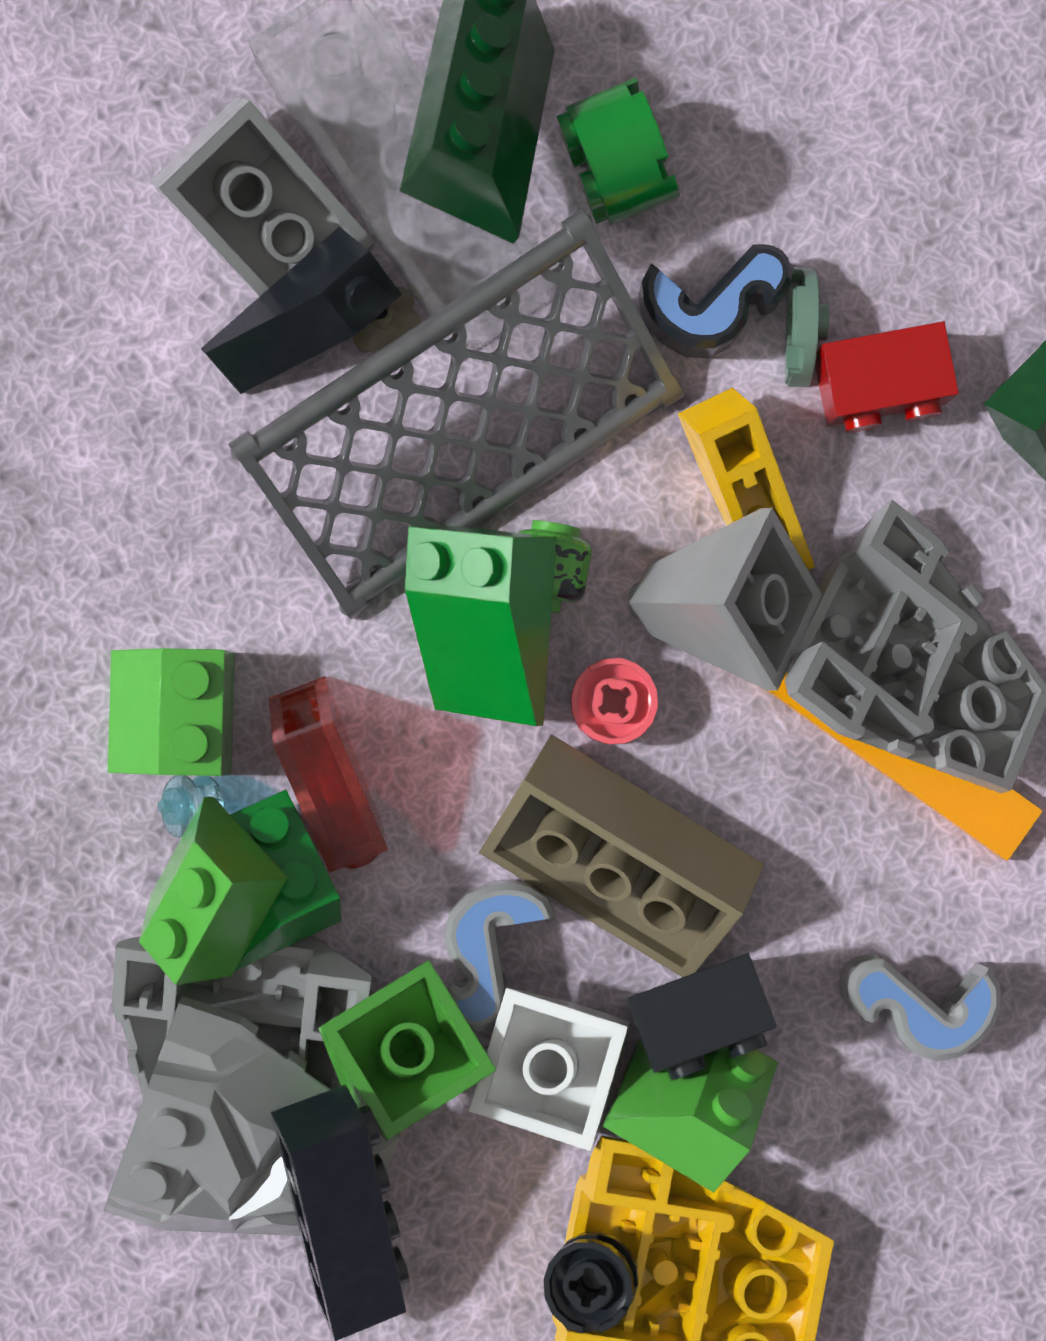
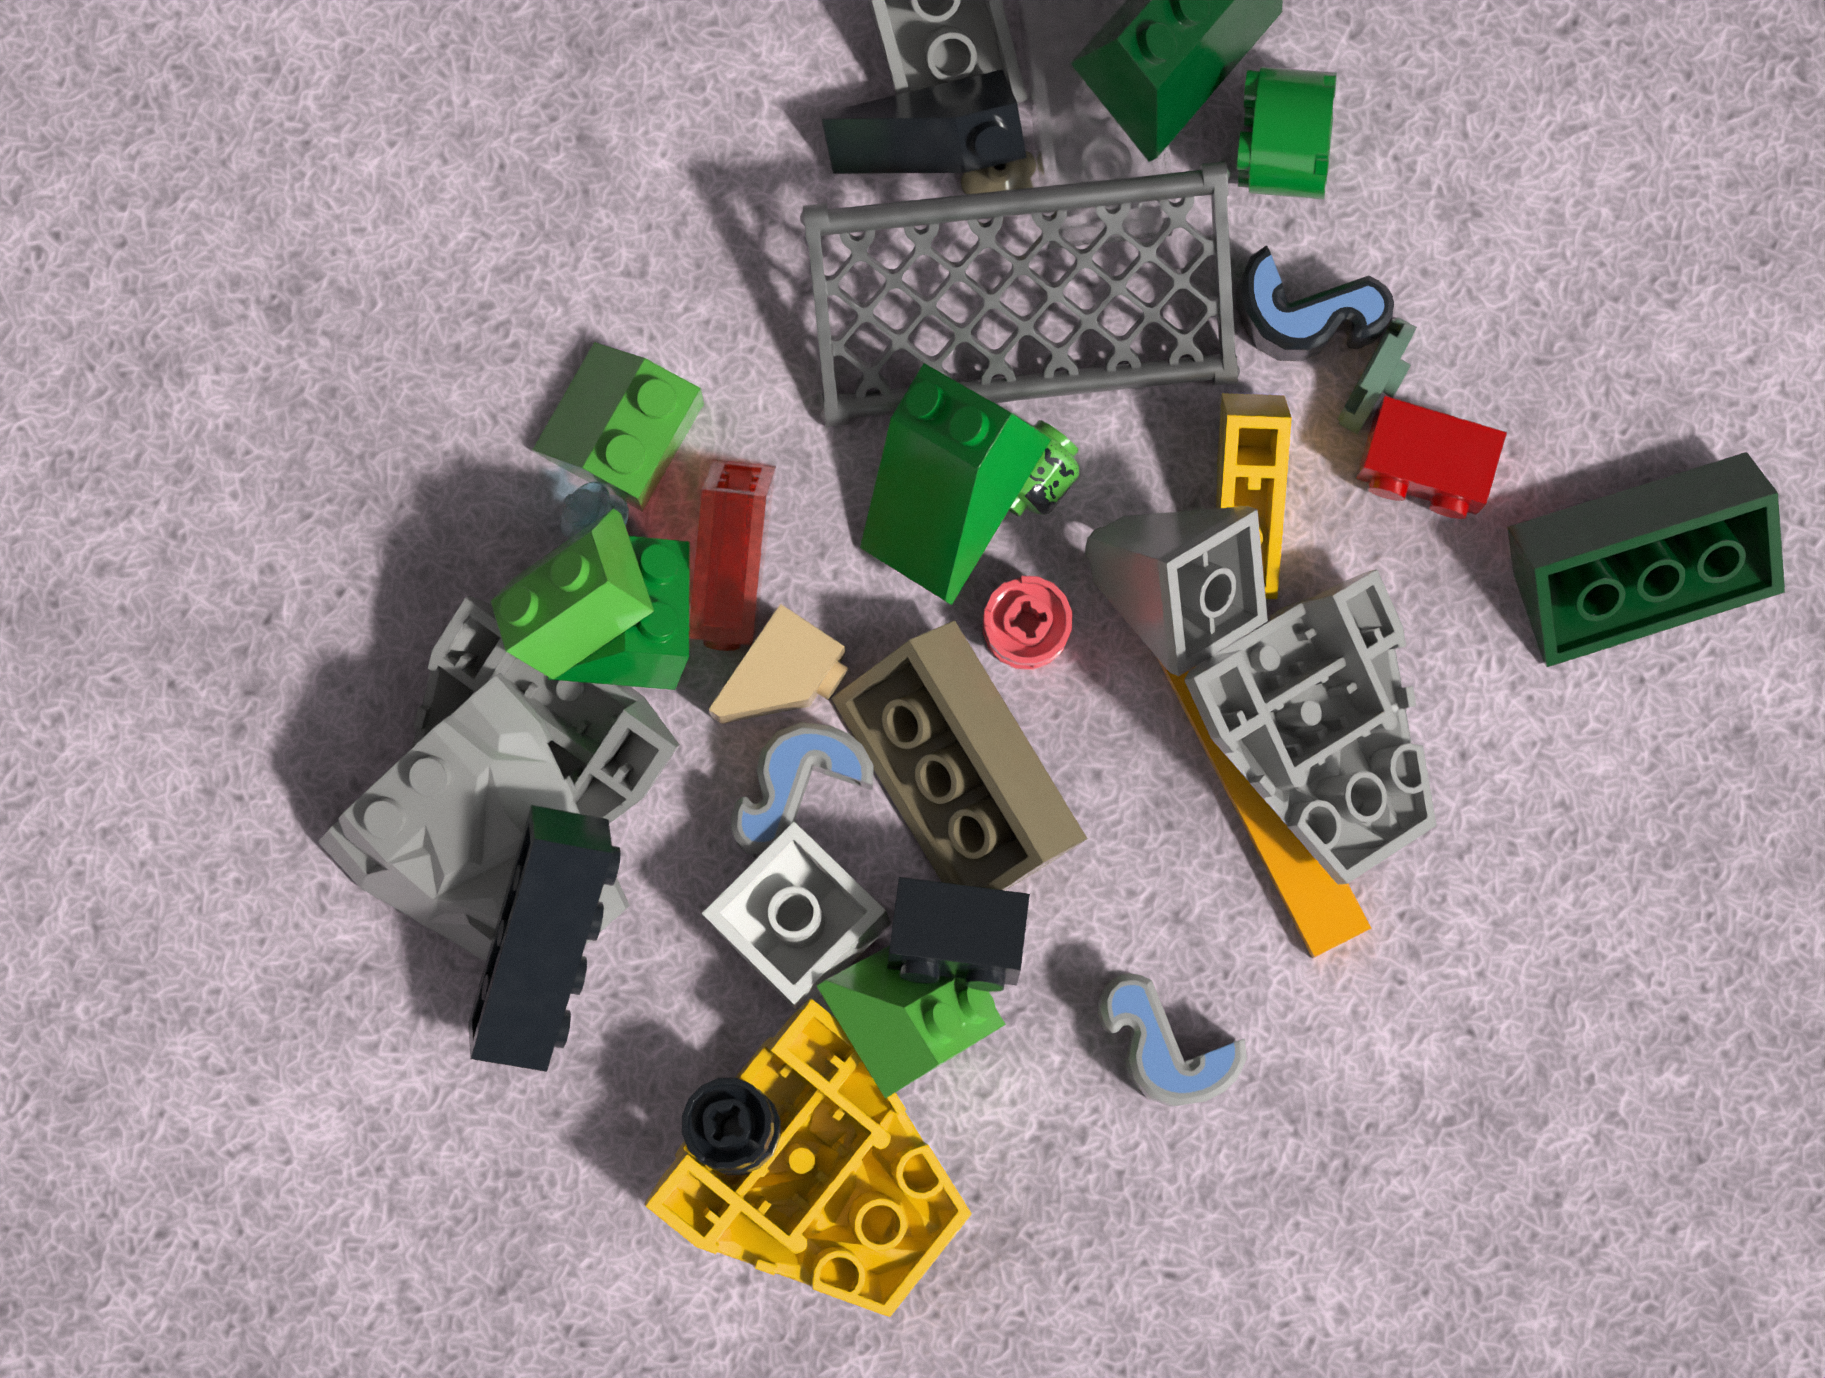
camera: 30 degrees right, 5 degrees down
(405, 1050) = (676, 822): bright green slope -> none
(424, 854) = (781, 670): none -> tan slope

